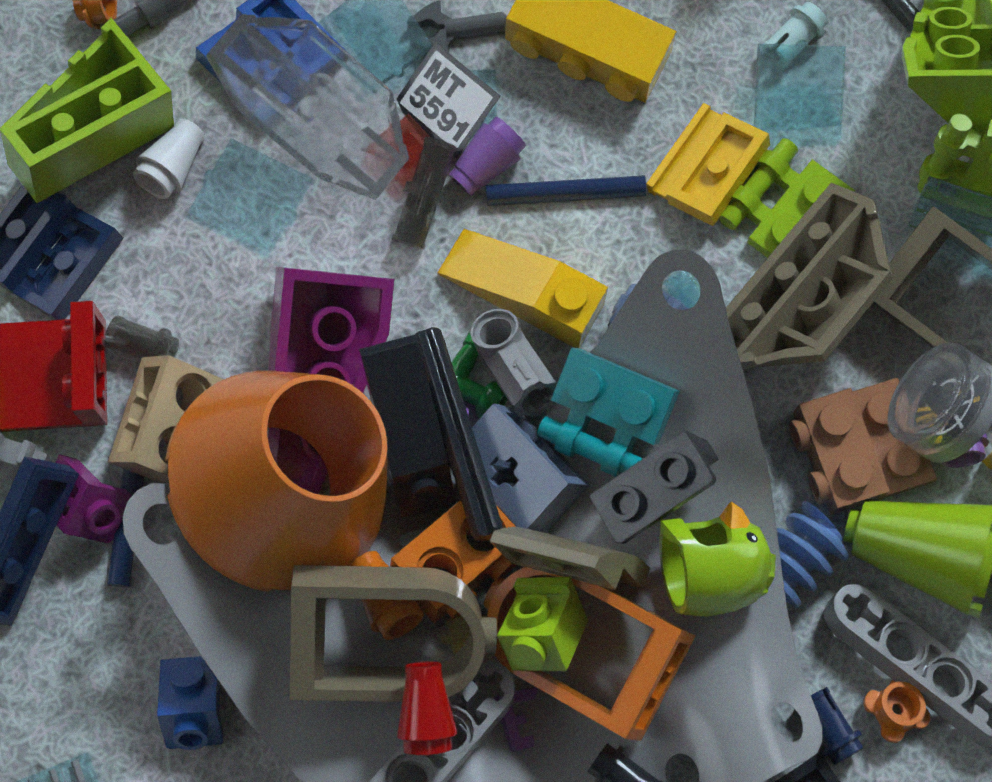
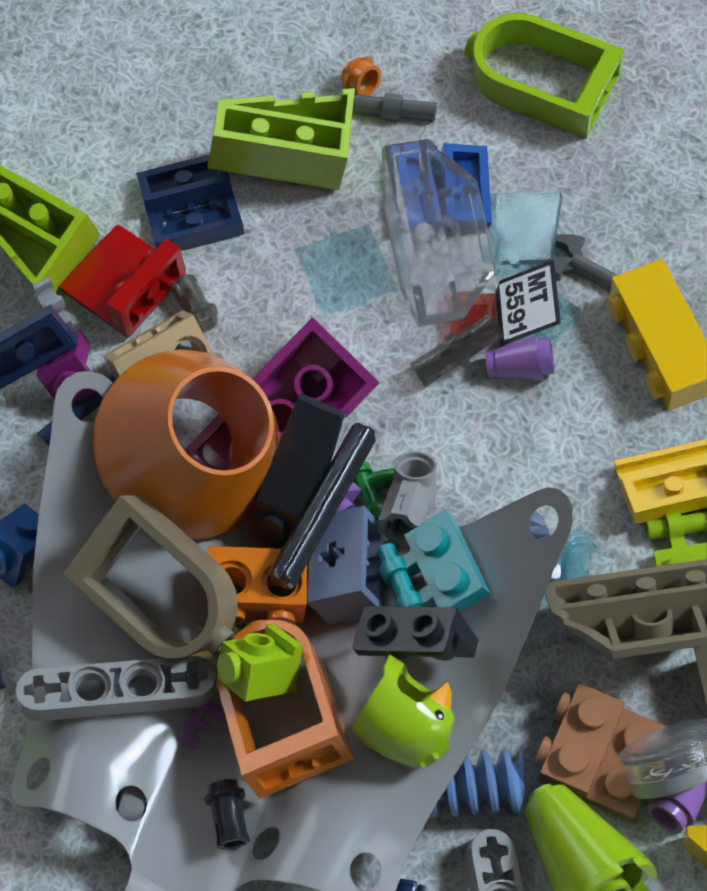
camera: 50 degrees right, 10 degrees down
(168, 160) = (314, 206): white cone -> none
(389, 617) = (177, 583): orange cone -> none
(425, 712) = (133, 649): red cone -> none
(527, 285) = (468, 459): yellow slope -> none
(566, 190) = (557, 424): dark blue bar -> none
(570, 558) = (317, 637): dark tan slope -> none

